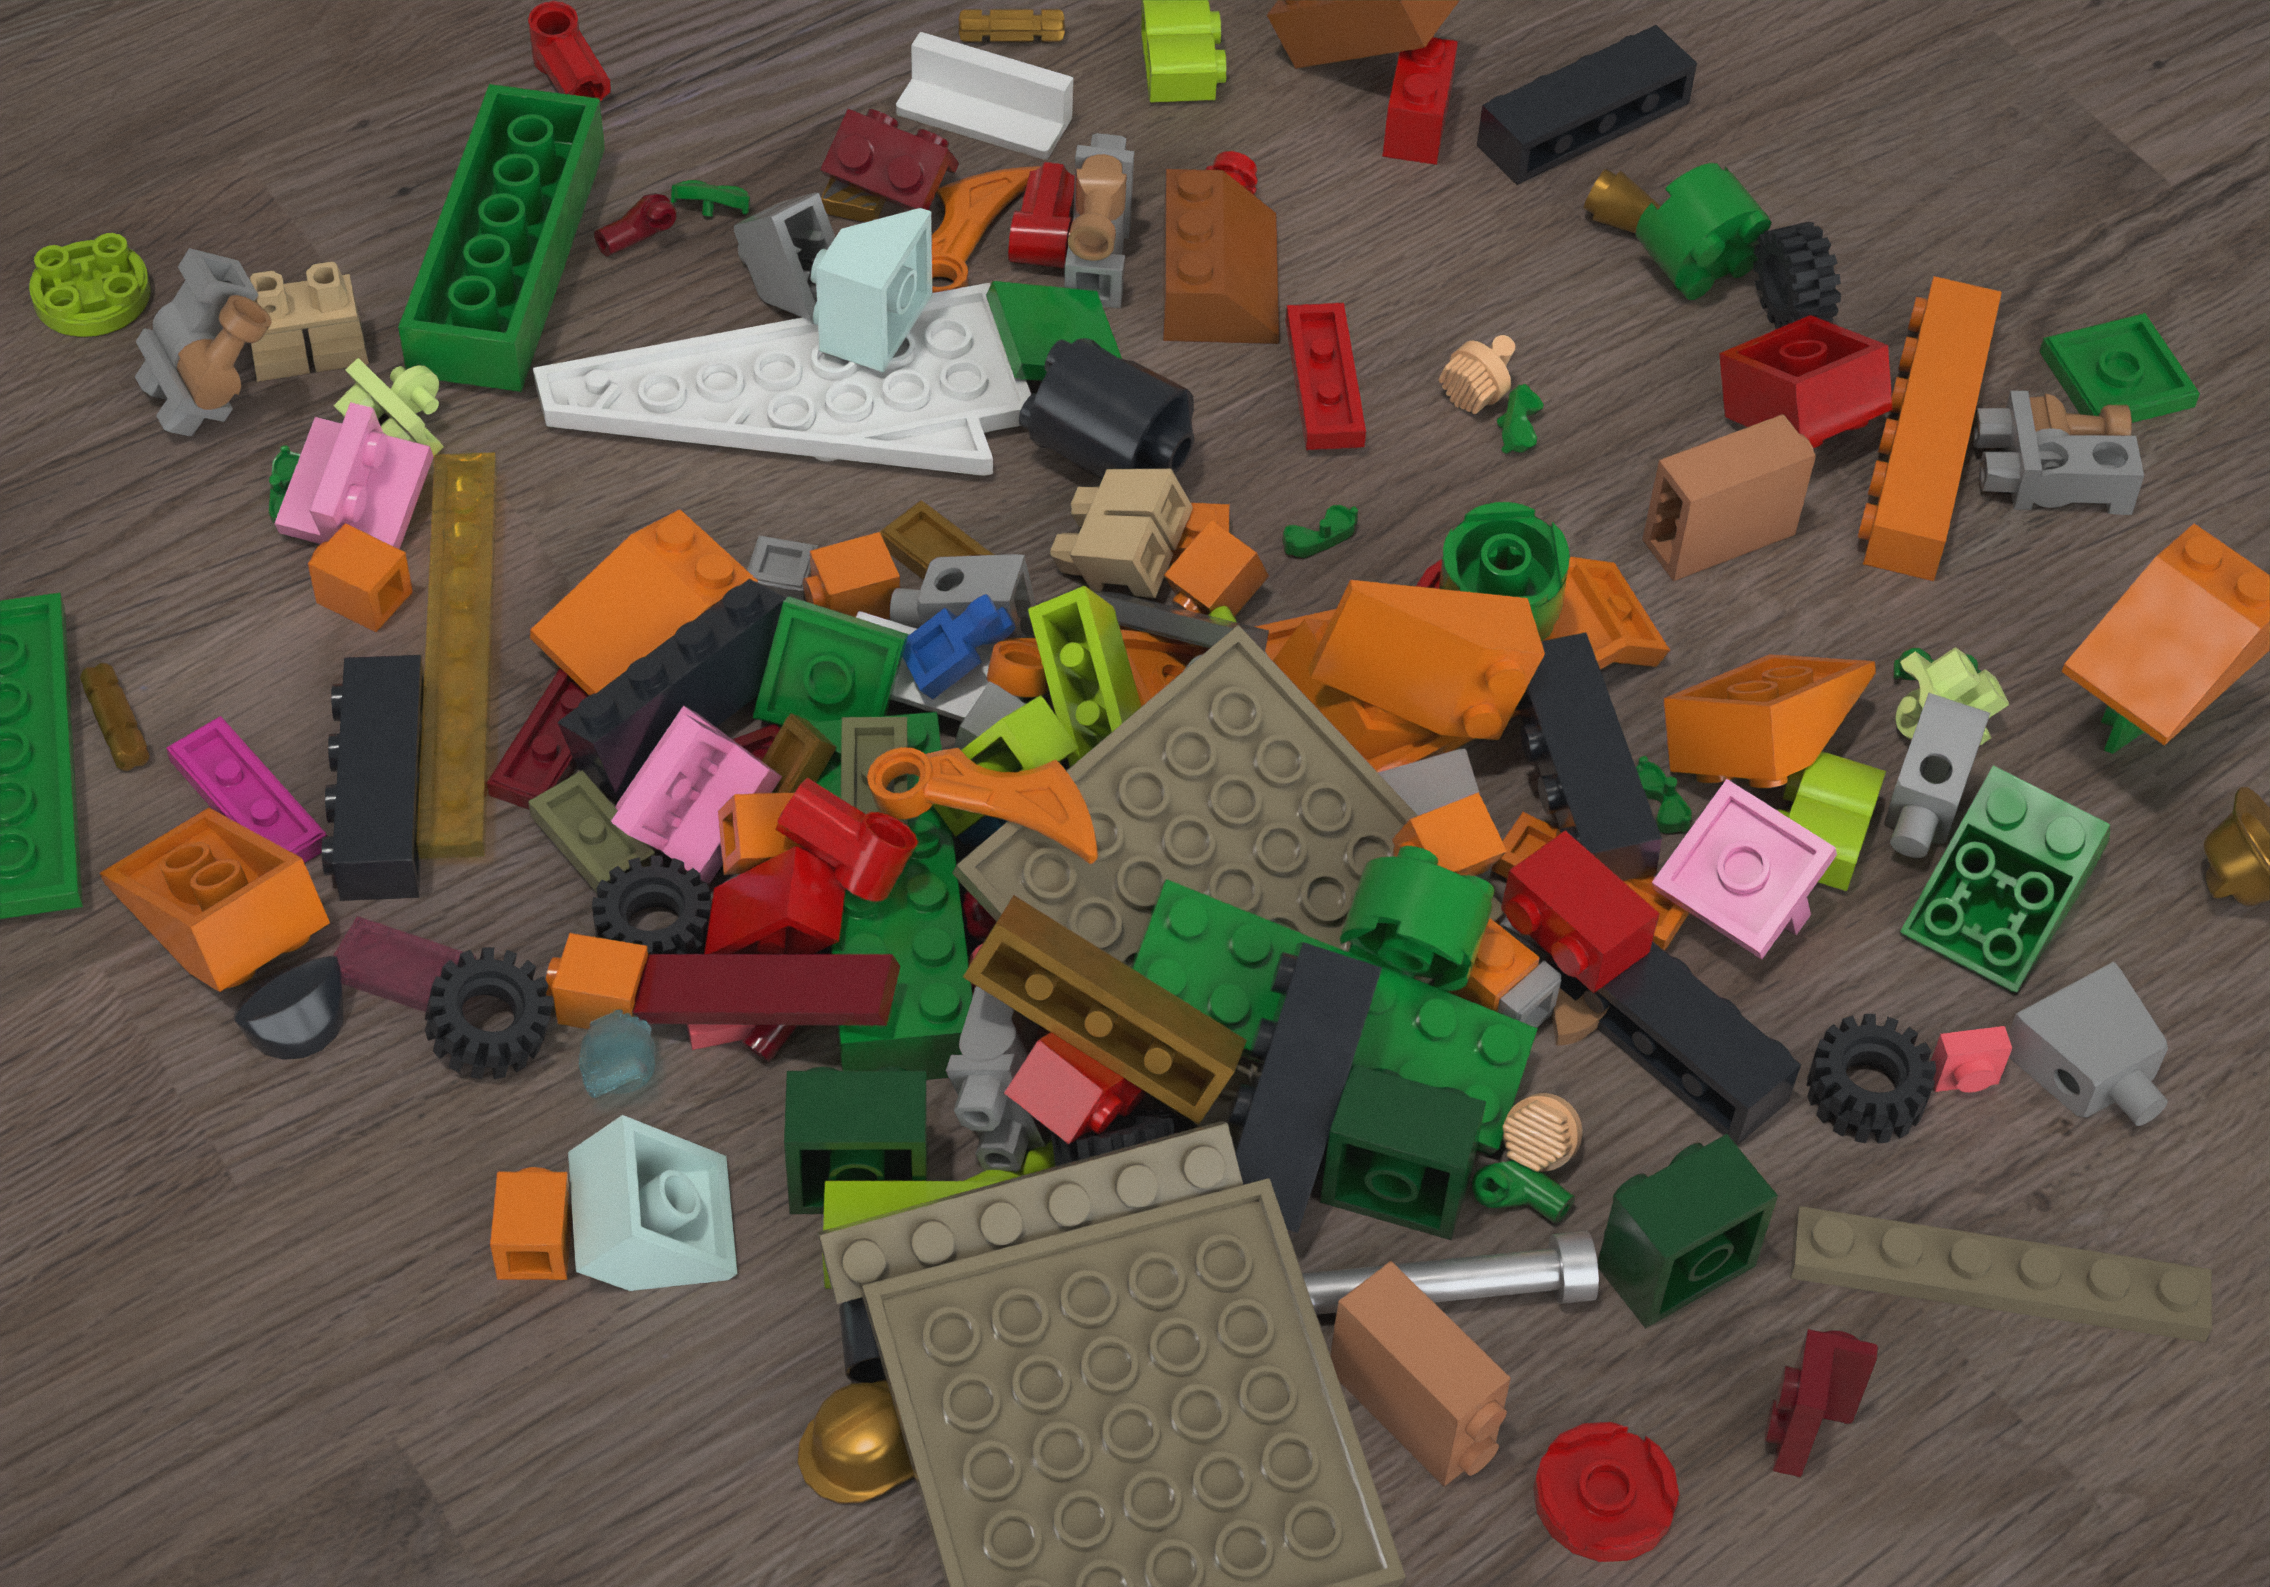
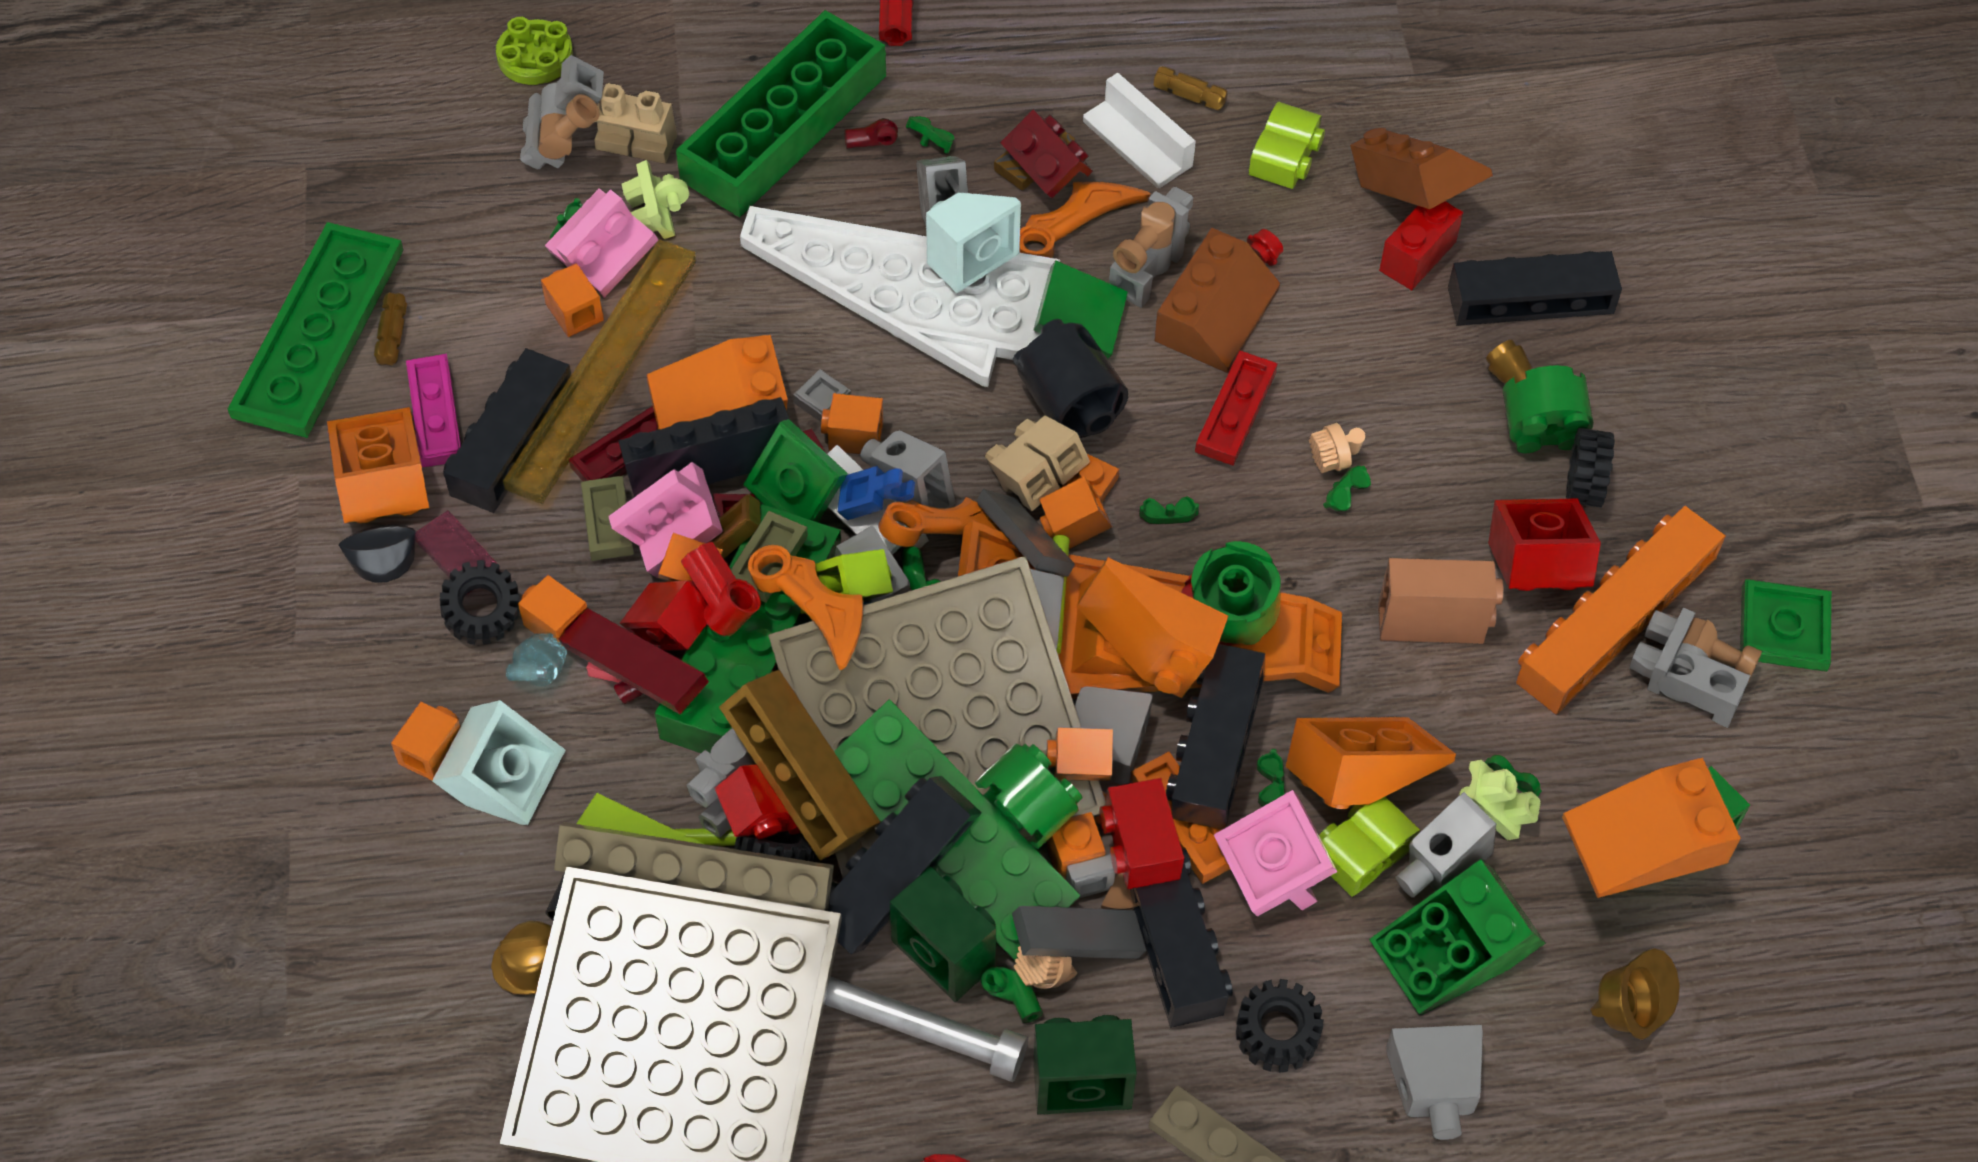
camera: 30 degrees right, 5 degrees up
(654, 888) = (606, 565): black tyre -> none
(852, 1130) = (629, 770): dark green brick -> none
(924, 535) = (923, 419): pearl gold tile -> none
(1043, 225) = (1122, 225): red piece -> none
(1085, 666) = (934, 540): lime brick -> none
(1419, 1374) = (862, 1076): nougat brick -> none
(1566, 1073) = (1078, 932): none -> dark grey tile
(1971, 1059) = (1350, 1044): coral plate -> none

